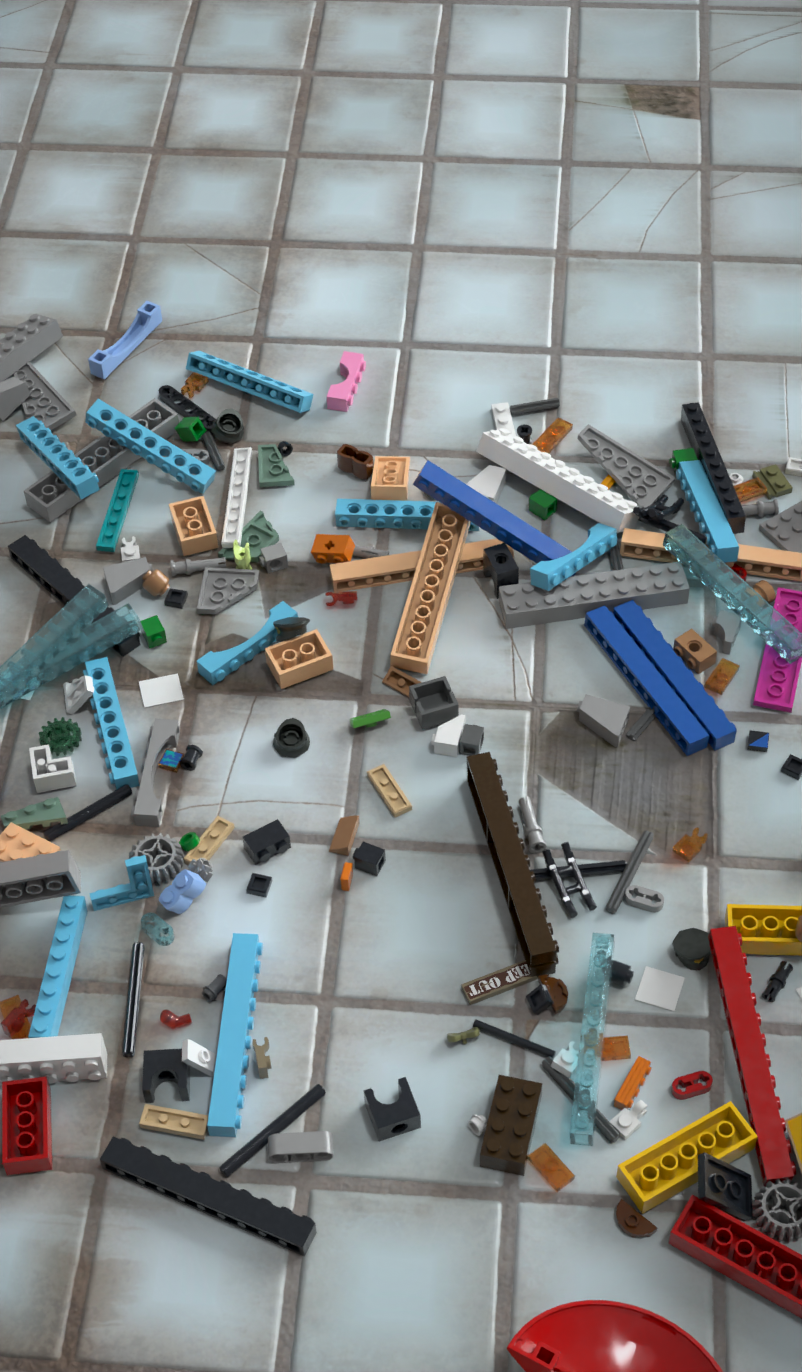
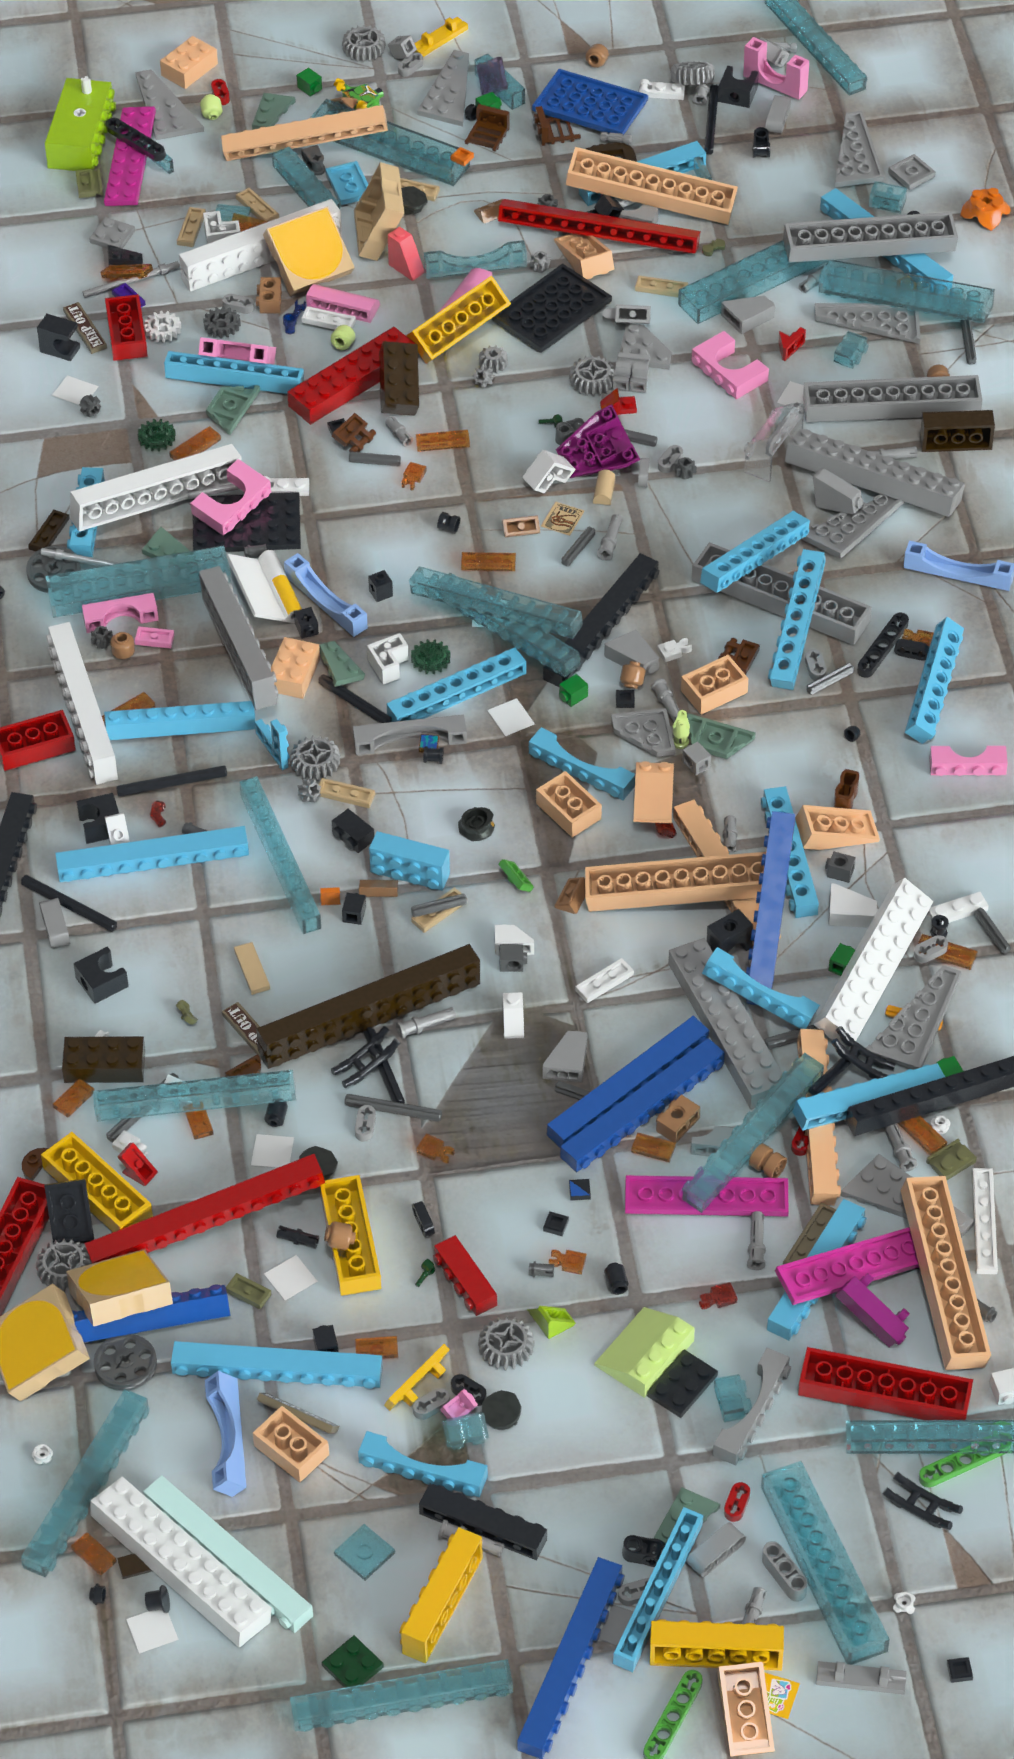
camera: 75 degrees right, 0 degrees up
(15, 1019) = (125, 702): clear red plate -> none
(77, 693) = (480, 655): white wing -> none
(117, 510) = (722, 624): teal plate -> none
(154, 932) = (242, 775): clear light blue beam -> none
(159, 500) = (744, 653): none -> reddish brown plate
(174, 1121) = (60, 833): tan plate -> none
(183, 890) = (278, 780): light blue brick -> none
(189, 841) = (340, 776): green tile -> none
(190, 429) = (848, 650): green brick -> none
(204, 391) = (911, 649): none -> black beam
(228, 426) = (863, 680): pearl dark grey hat -> none
(237, 497) = (768, 710): white tile -> none
(259, 885) = (309, 838): black tile -> none
(262, 1060) = (129, 877): dark tan plate -> none
(272, 468) = (821, 729): sand green wing -> none
(276, 911) = (280, 855): none -> clear light blue brick
(290, 627) = (597, 783): pearl dark grey hat -> none
(312, 591) = (653, 792): none -> light nougat slope
(330, 796) = (409, 861): none -> medium azure brick
(332, 548) = (717, 799): orange brick -> none
(390, 785) = (439, 905): none -> dark grey axle
(417, 965) = (252, 968): none -> tan tile
(433, 702) = (549, 919): dark grey piece -> none
(514, 1039) = (193, 1049): black bar -> none
(518, 675) = (604, 980): none -> white plate
(539, 999) = (234, 1059): black tile -> none
(542, 751) = (513, 1015): none -> white slope
(553, 442) = (930, 948): none -> light grey beam
(632, 1083) = (166, 1141): orange piece -> none
(662, 1116) = (136, 1165): none -> red slope
(691, 1084) = (171, 1188): red beam -> none
(775, 868) = (423, 1219): none -> black beam

